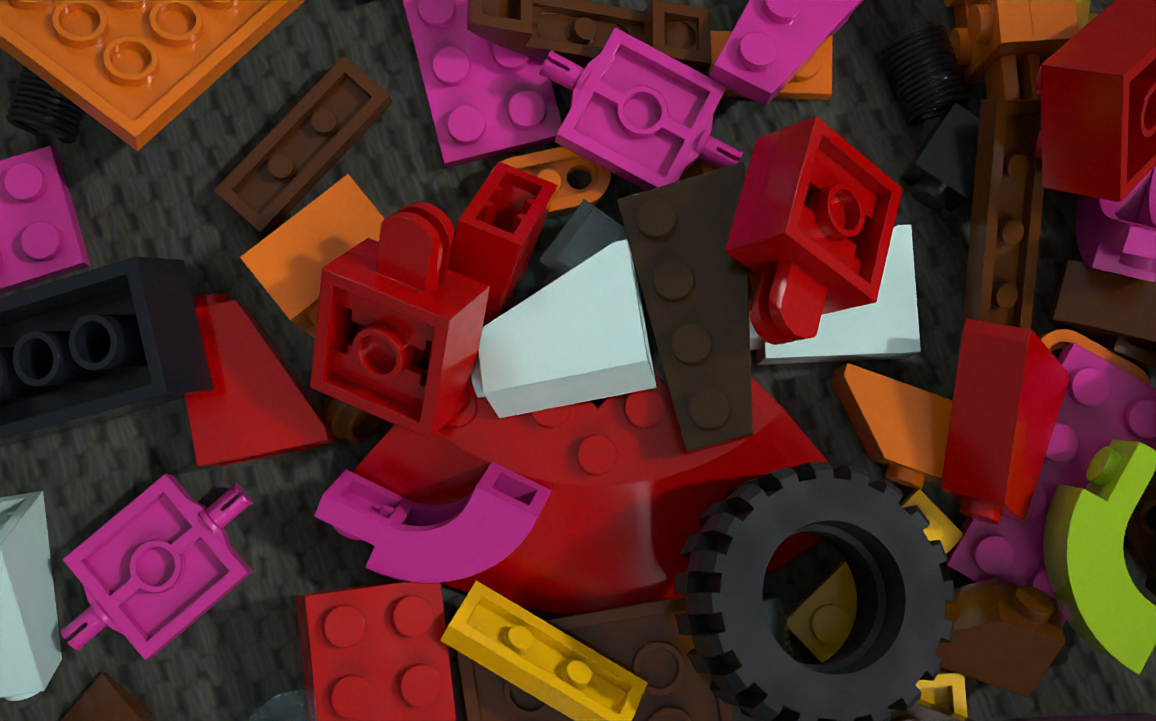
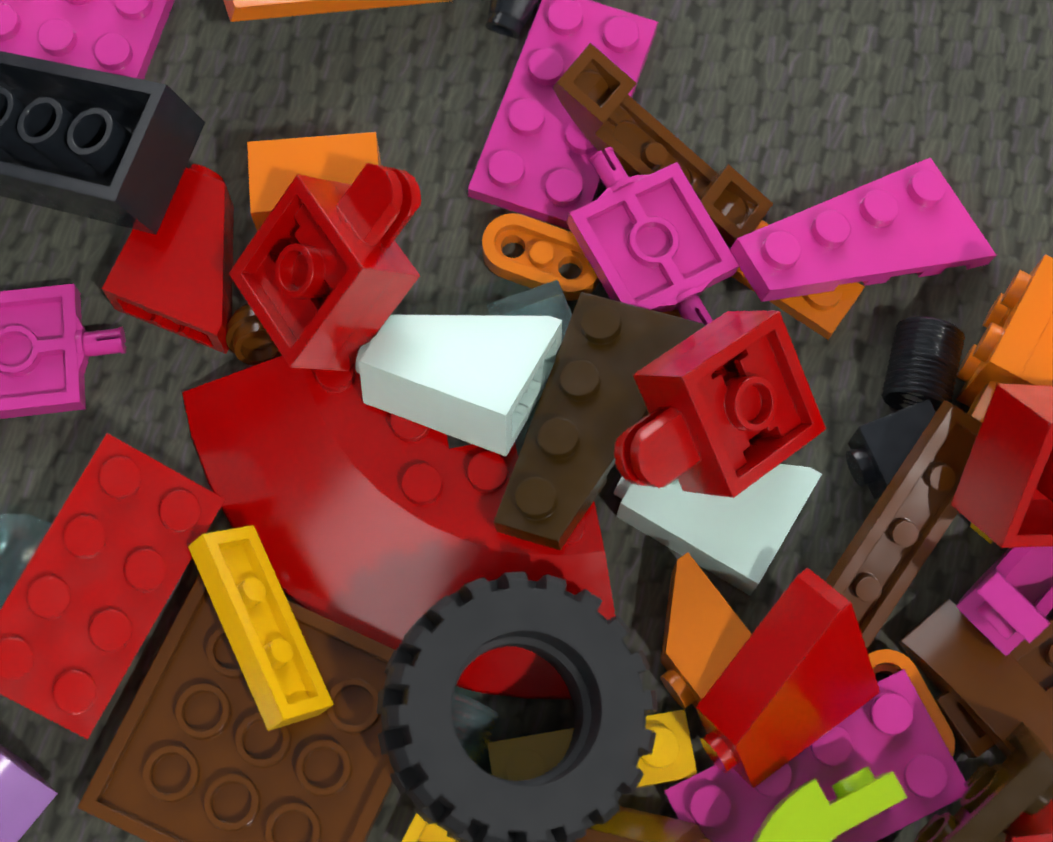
camera: 40 degrees right, 10 degrees down
(304, 146) = (376, 102): reddish brown plate -> none
(435, 540) = (238, 468): dark pink arch -> none
(500, 233) = (466, 261): red slope -> none

